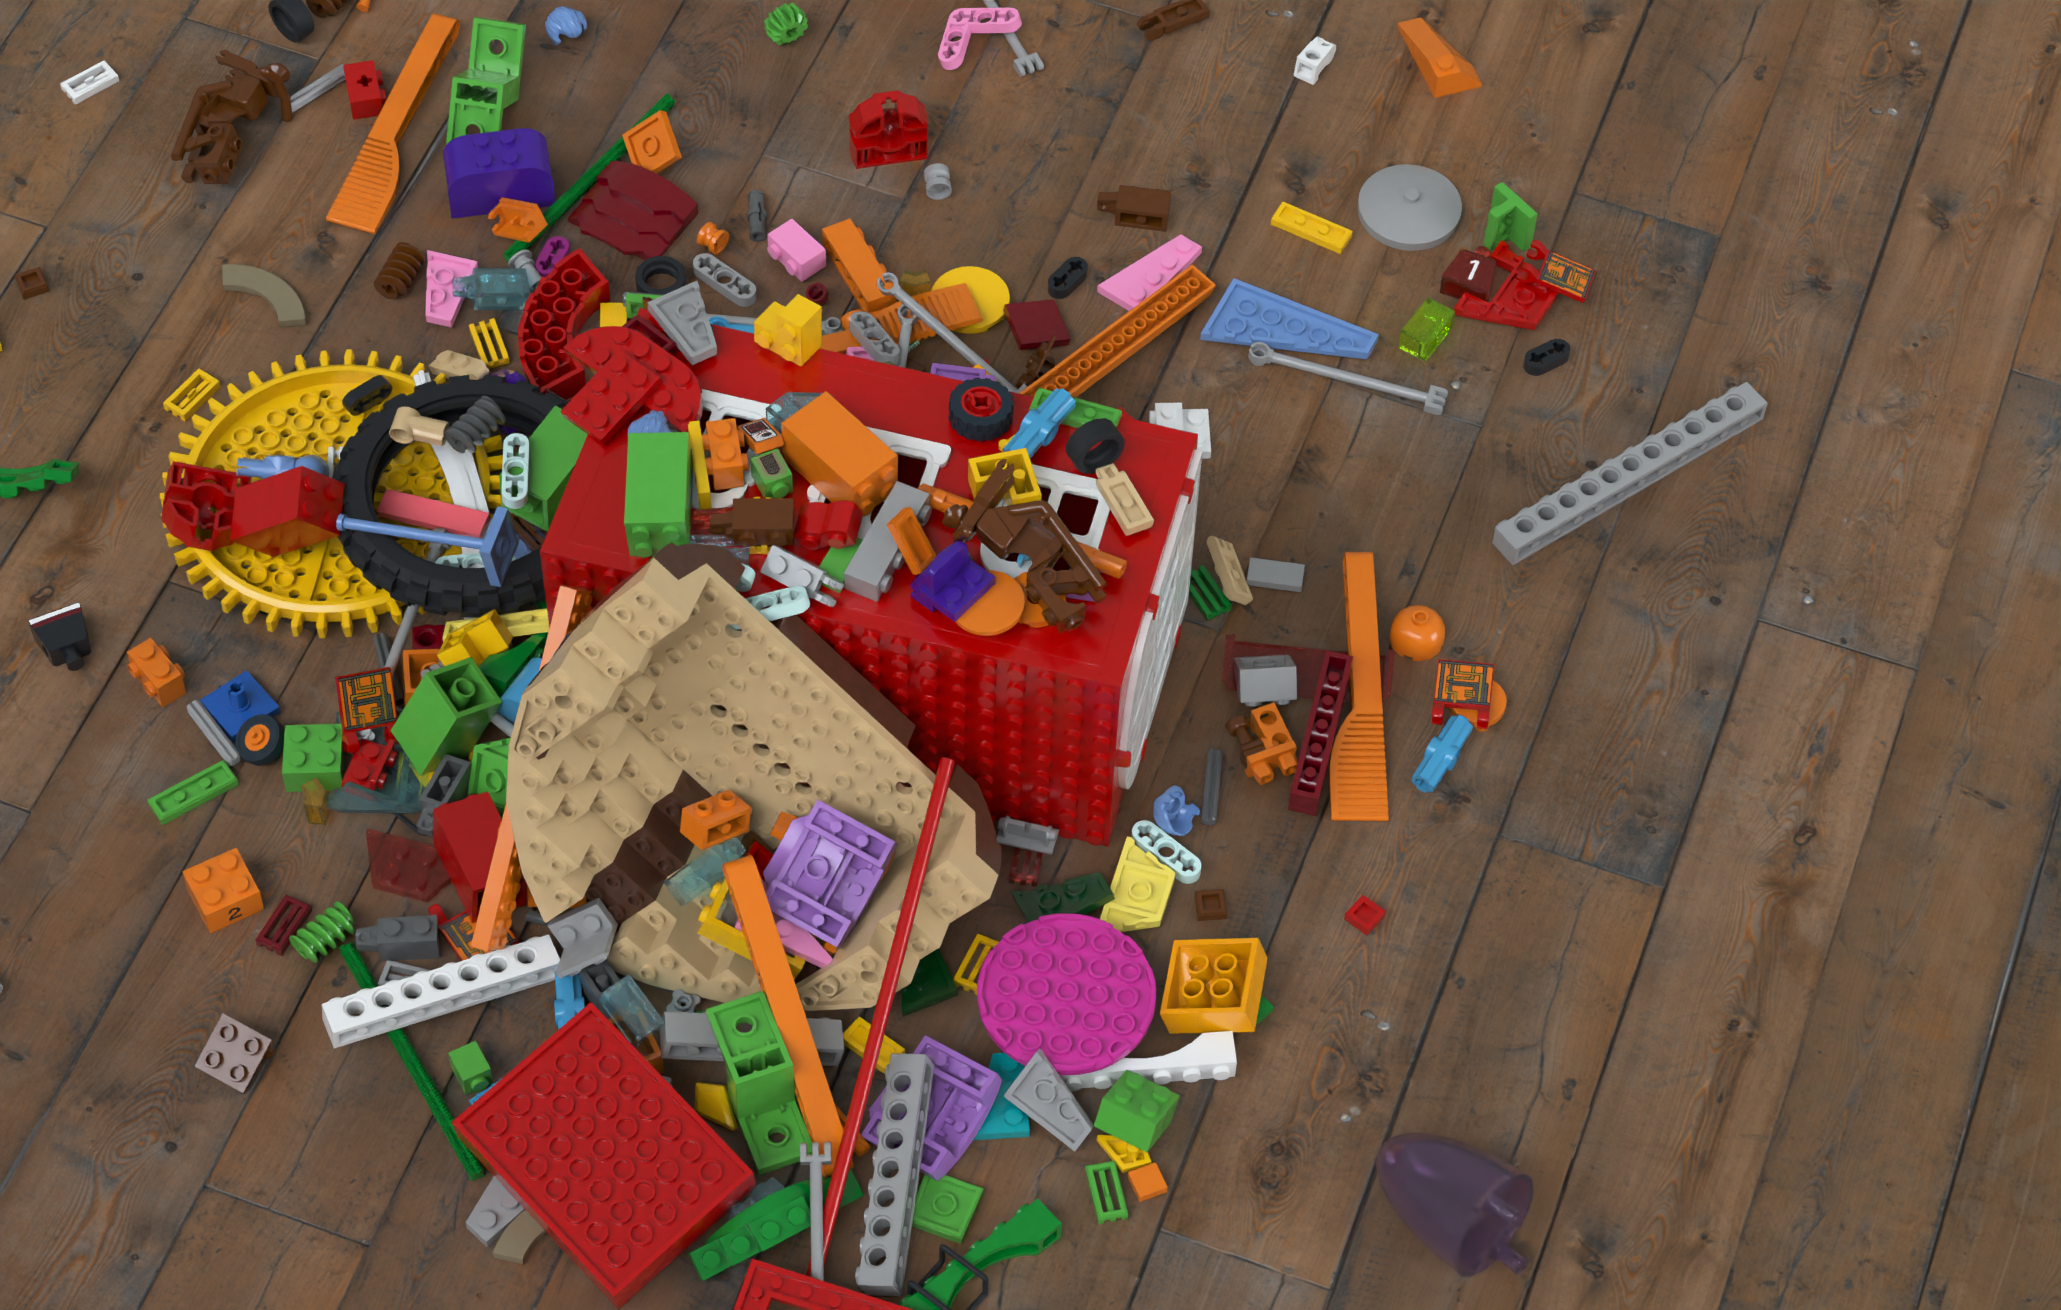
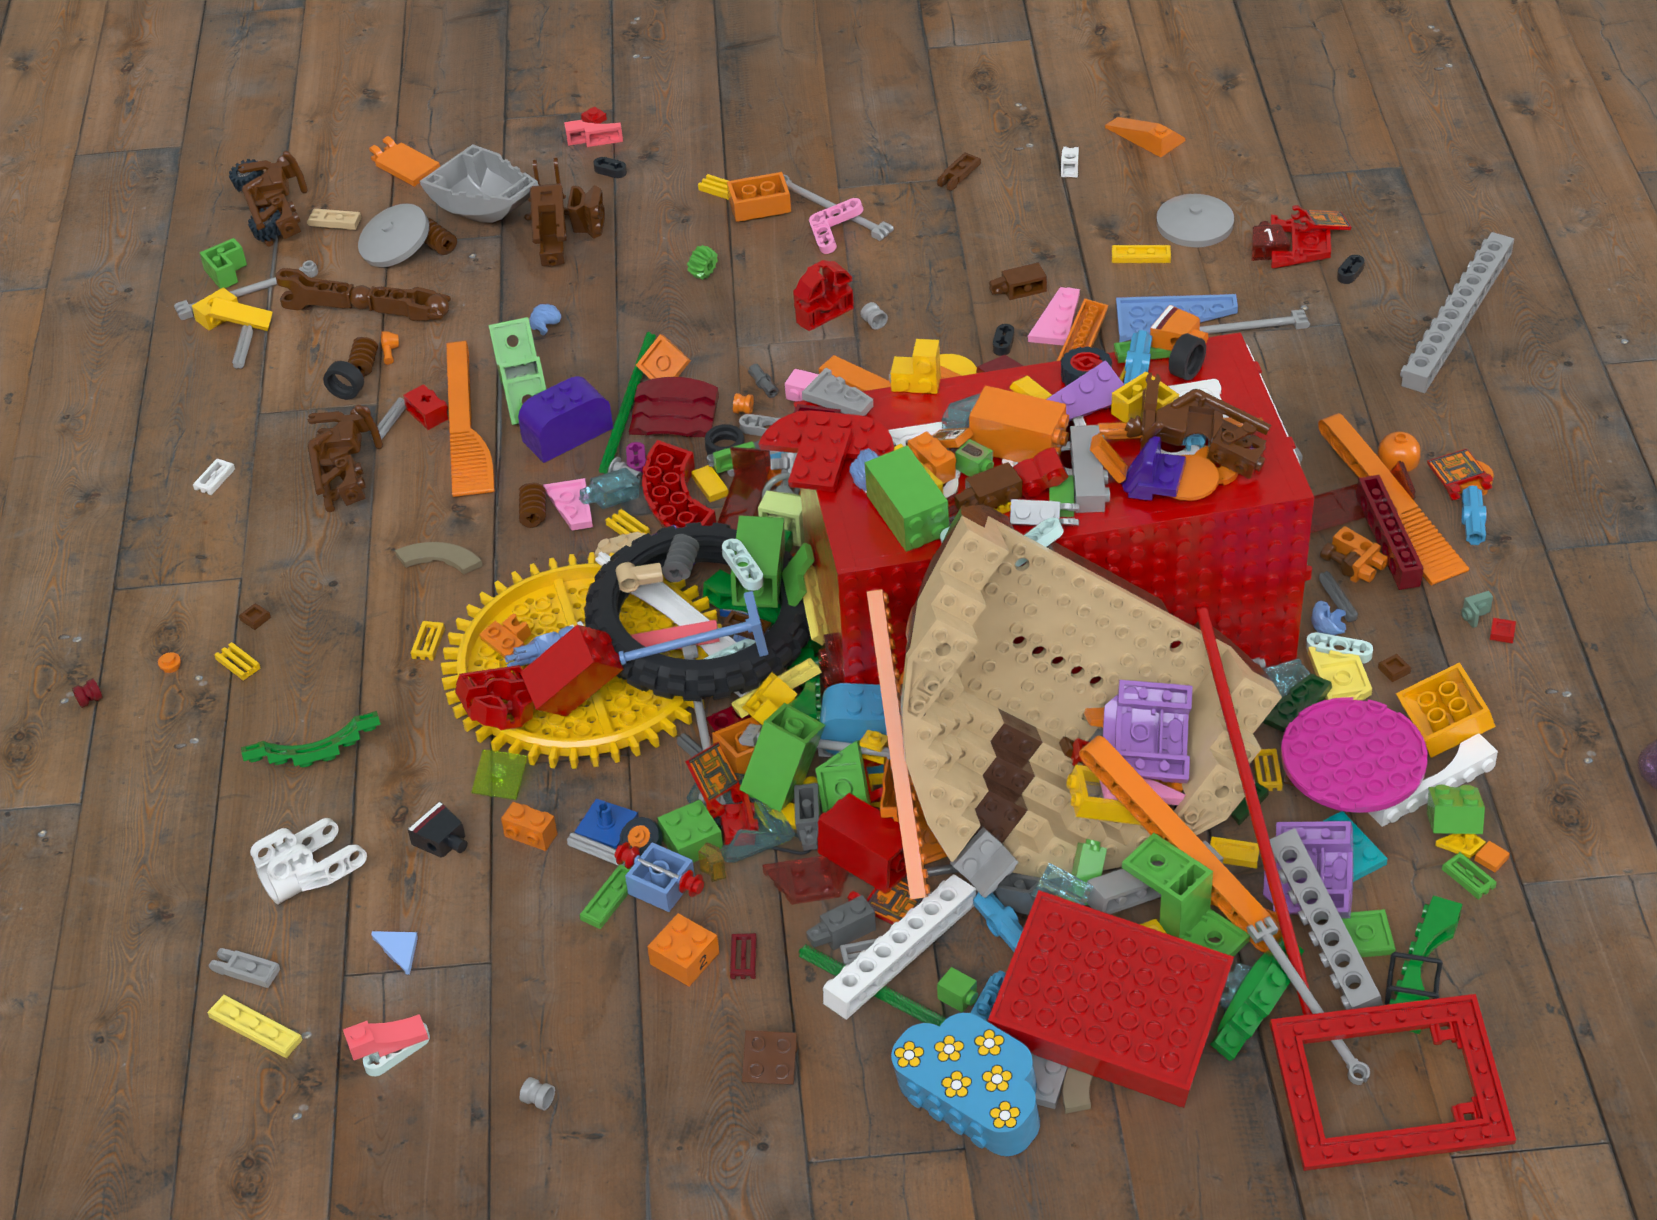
camera: 20 degrees left, 10 degrees down
(165, 595) = (499, 774): none -> clear neon green piece
(247, 792) = (658, 875): none -> medium blue brick
(266, 430) = (506, 637): none -> orange plate
(323, 932) = (781, 945): bright green piece -> none
(367, 395) = (567, 586): black beam -> none
(407, 1179) = (971, 1080): none -> dark azure brick
(517, 220) = (597, 441): orange hinge -> none
(689, 989) = (1088, 860): none -> bright green brick
(703, 871) = (1054, 773): clear light blue hinge -> none
(715, 819) = (1045, 730): orange brick -> none
(902, 414) = (1029, 387): none -> yellow tile
(946, 444) = (1089, 392): none -> medium lavender wing
(1049, 1101) = (1391, 829): light grey wing -> none
(1067, 861) = (1287, 675): none -> clear light blue hinge
(1112, 399) = (1172, 326): none -> orange torso
(1123, 500) = (1227, 384): tan hinge -> none
(1265, 679) = (1331, 514): light grey slope -> none
(1356, 871) = (1476, 606): none -> sand green bracket
(1426, 329) = (1263, 280): clear neon green panel -> none
(1509, 219) = (1270, 198): bright green bracket -> none

